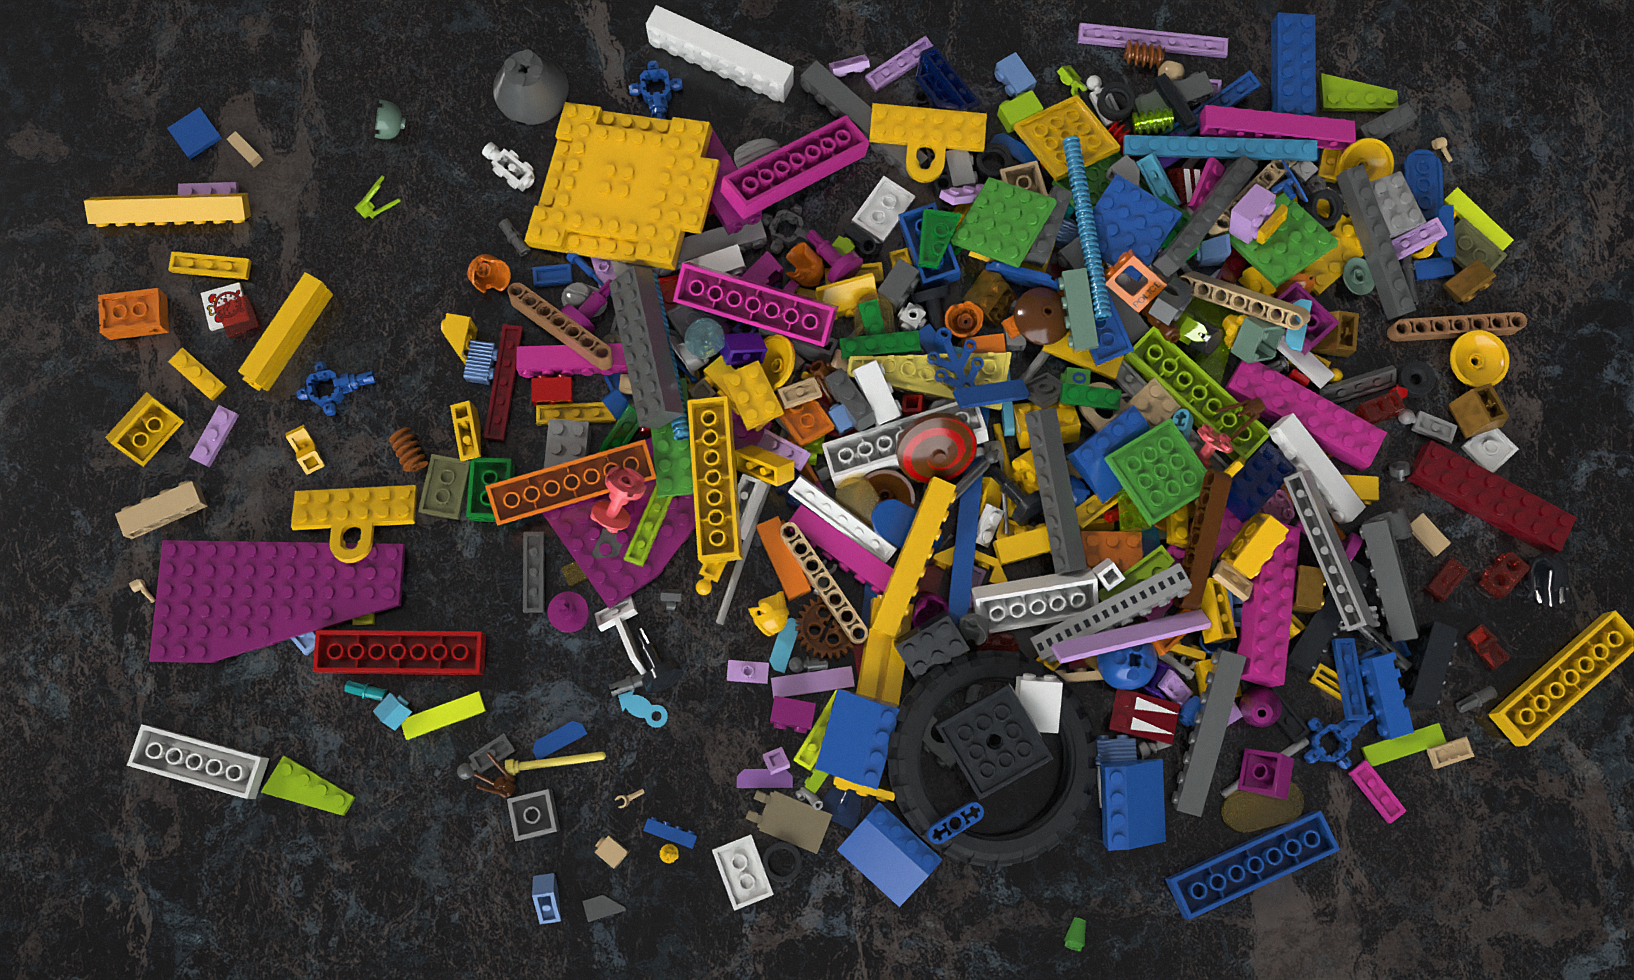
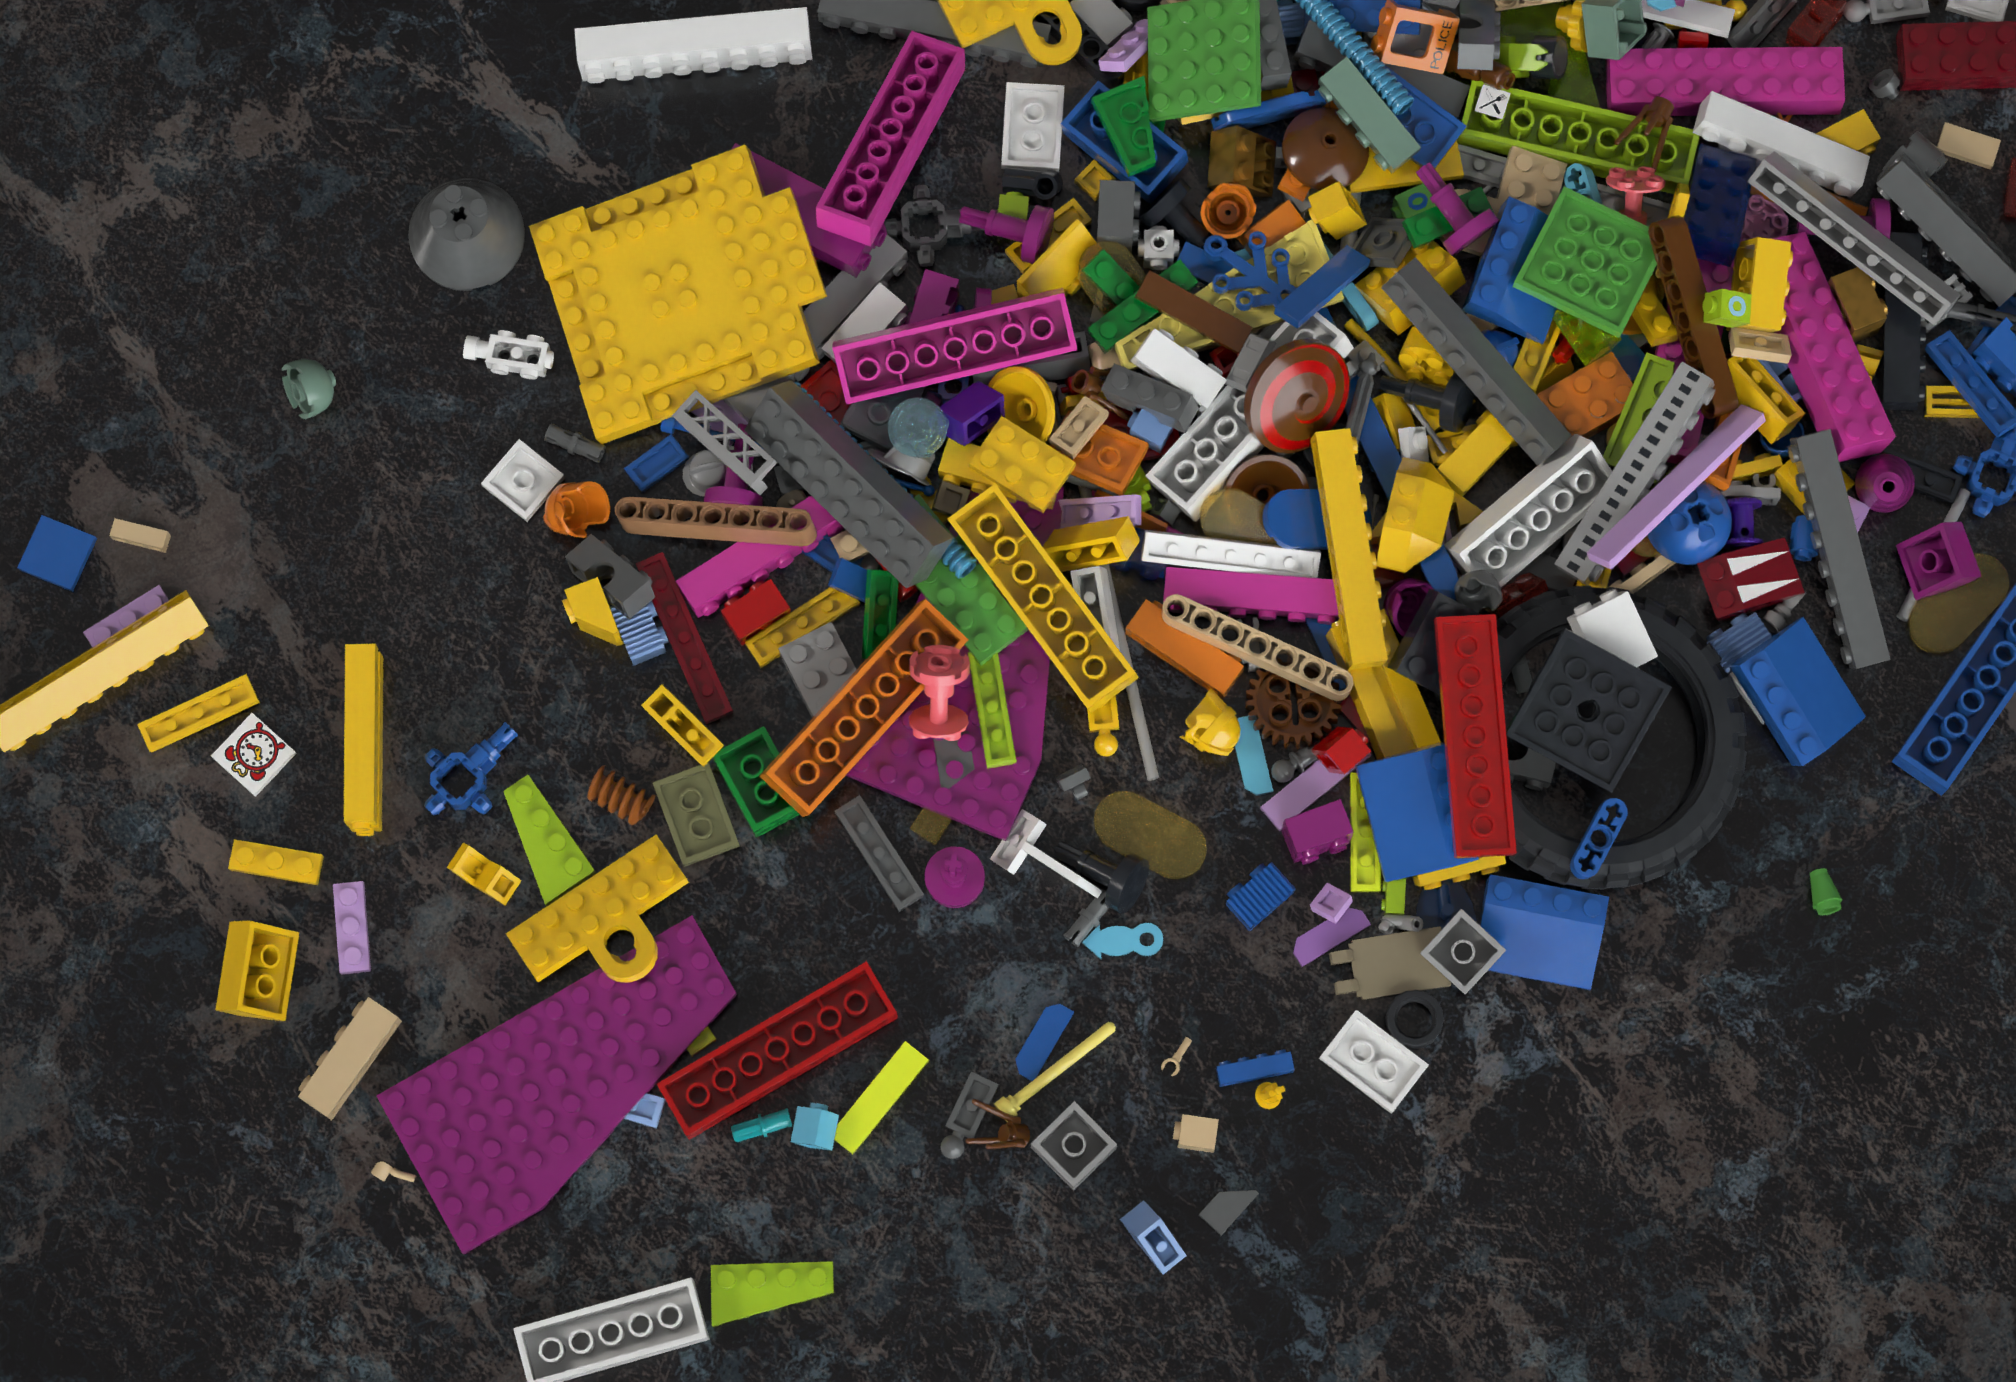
camera: 25 degrees left, 0 degrees up
(133, 313) = (144, 833): orange piece -> none
(237, 316) = (281, 757): clear red piece -> none
(352, 456) = (548, 845): none -> lime wing
(366, 208) = (353, 517): lime plant -> none
(471, 240) = (523, 480): none -> white plate
(480, 310) = (628, 588): none -> dark grey arch
(586, 283) = (722, 451): none -> light grey fence
(657, 102) = (649, 154): blue piece -> none
(696, 655) = (1144, 828): none -> clear yellow tile
(737, 730) = (1260, 895): none -> blue brick
(747, 671) = (1227, 816): lavender plate -> none
(753, 151) = (825, 150): light grey hair -> none
(807, 264) = (981, 256): orange helmet -> none
(833, 840) = (1463, 951): none -> light grey brick
(836, 673) = (1341, 749): none -> red brick
(906, 365) = (1193, 312): none -> reddish brown tile
(916, 716) = (1475, 736): none -> red plate
(925, 408) = (1250, 357): none -> light grey tile
(963, 560) = (1414, 516): none -> yellow wedge
(1027, 355) = (1336, 211): none -> yellow brick
(1097, 406) = (1466, 226): none -> magenta piece
(1108, 574) = (1602, 427): white brick -> none
(1158, 345) = (1492, 102): none -> white sticker
(1175, 688) = (1767, 521): lavender plate -> none
(1226, 546) = (1727, 308): none -> lime brick

